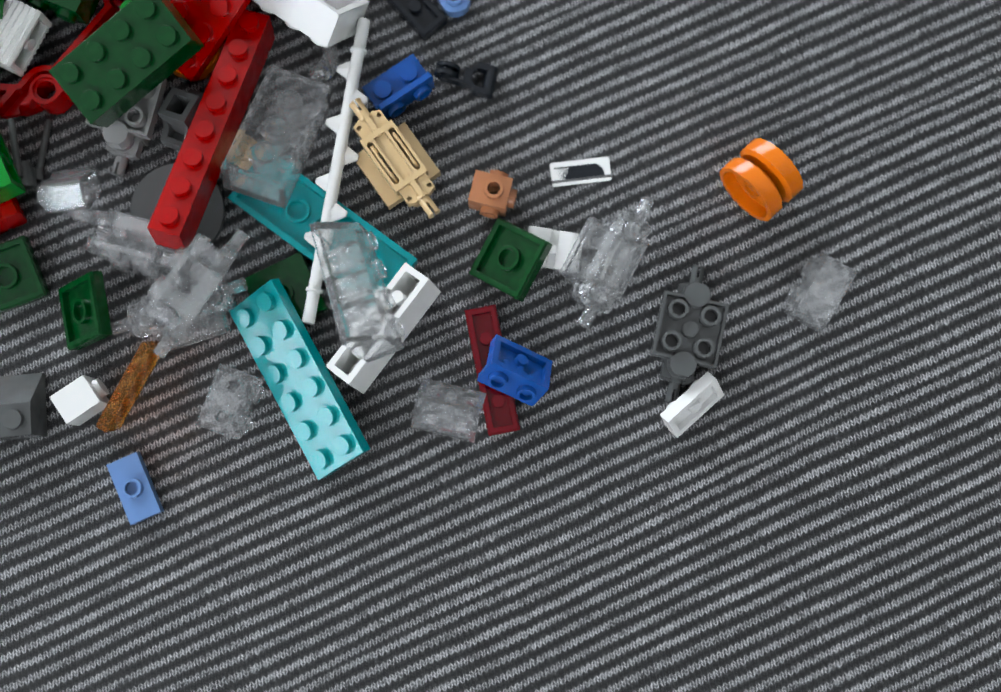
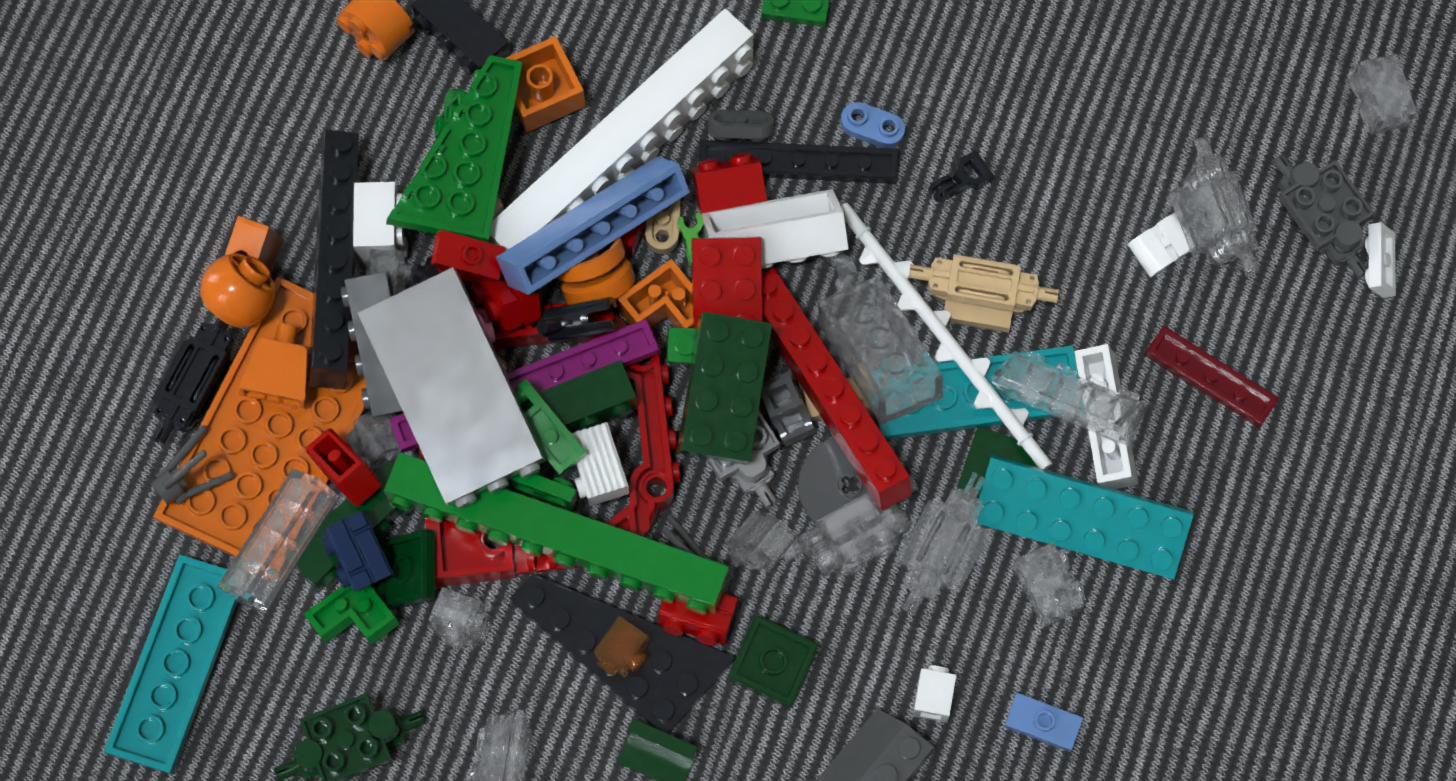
camera: 45 degrees left, 10 degrees down
(85, 310) = (868, 622): dark green plate -> none
(129, 387) = (963, 643): clear orange tile -> none
(166, 288) = (951, 507): clear piece -> none
(399, 87) = (918, 231): blue bracket -> none
(447, 412) = (1216, 431): clear brick -> none
(482, 191) = (1077, 245): nougat brick -> none
(510, 259) = (1142, 279): dark green plate -> none
(516, 371) = (1234, 356): blue bracket -> none
(580, 171) = (1117, 171): sticker -> none
(761, 179) = (1261, 51): orange wheel -> none

